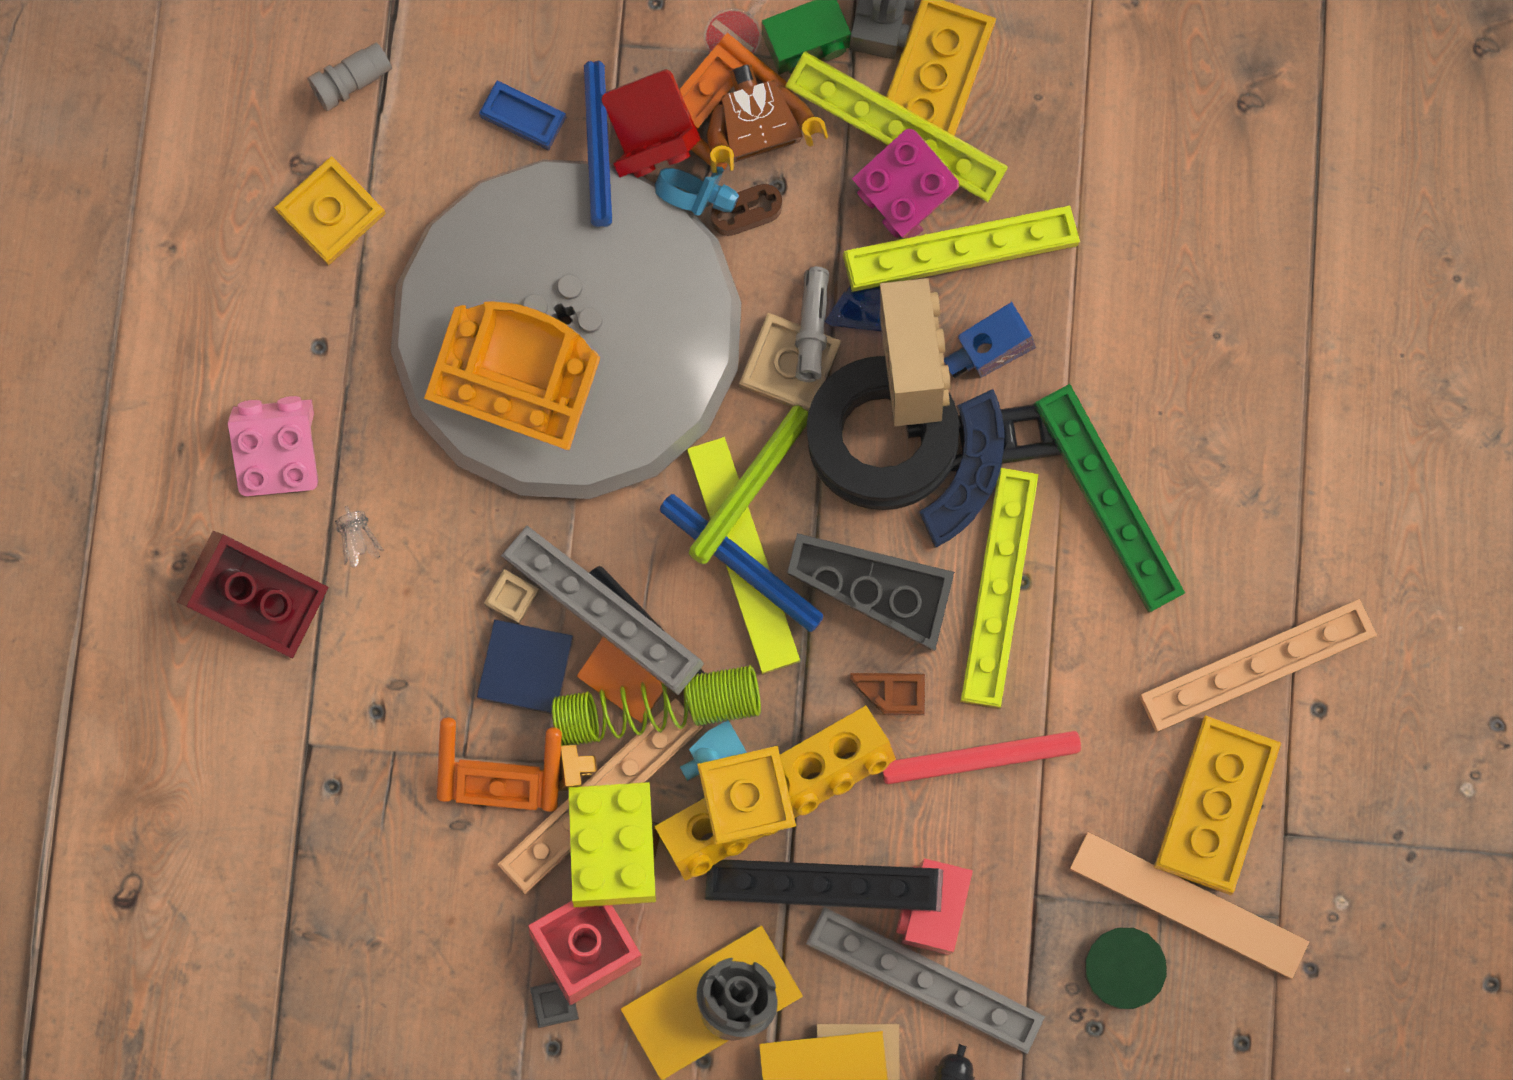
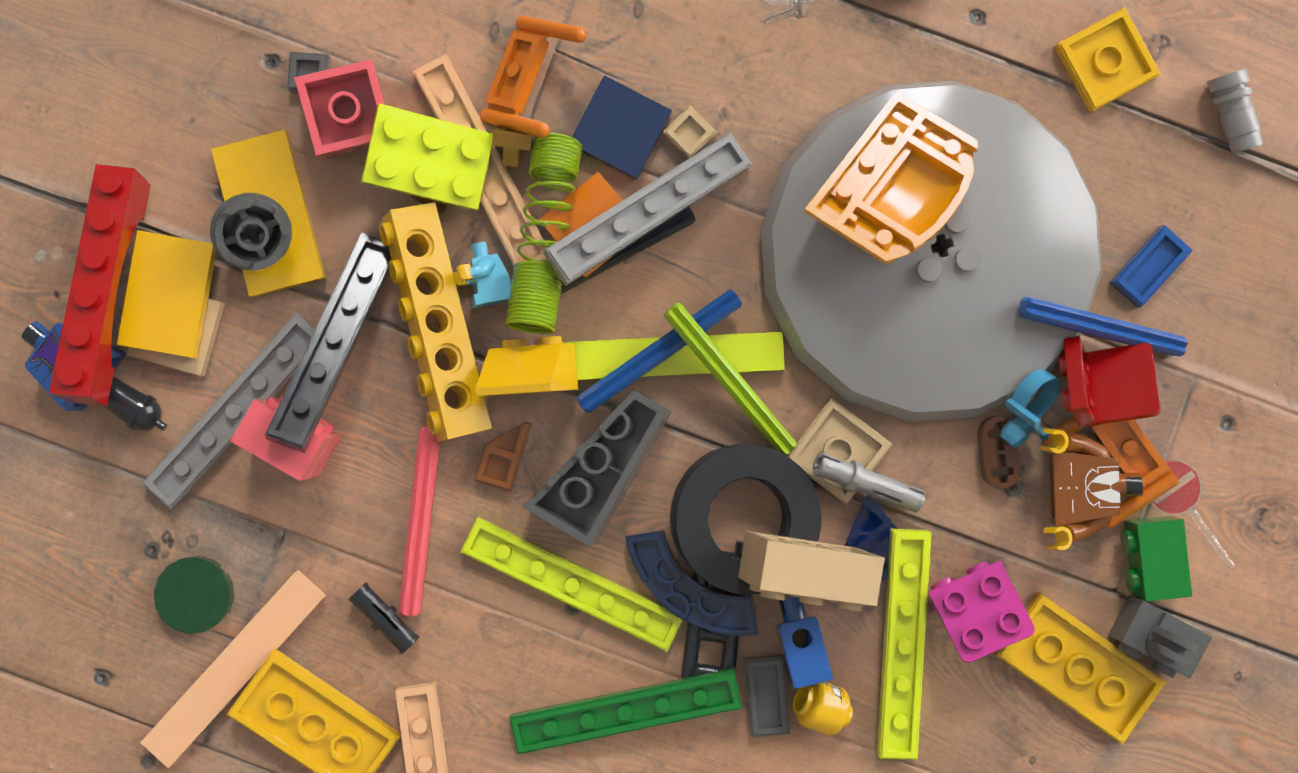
camera: 105 degrees right, 10 degrees up
(746, 795) = (432, 291): yellow tile -> none
(796, 683) = (529, 368): none -> yellow slope
(887, 120) = (1049, 611): neon yellow tile -> none
(1046, 308) = (823, 708): none -> yellow head
(1052, 366) = (766, 695): none -> dark grey tile
(1090, 765) = (383, 618): none -> black pin

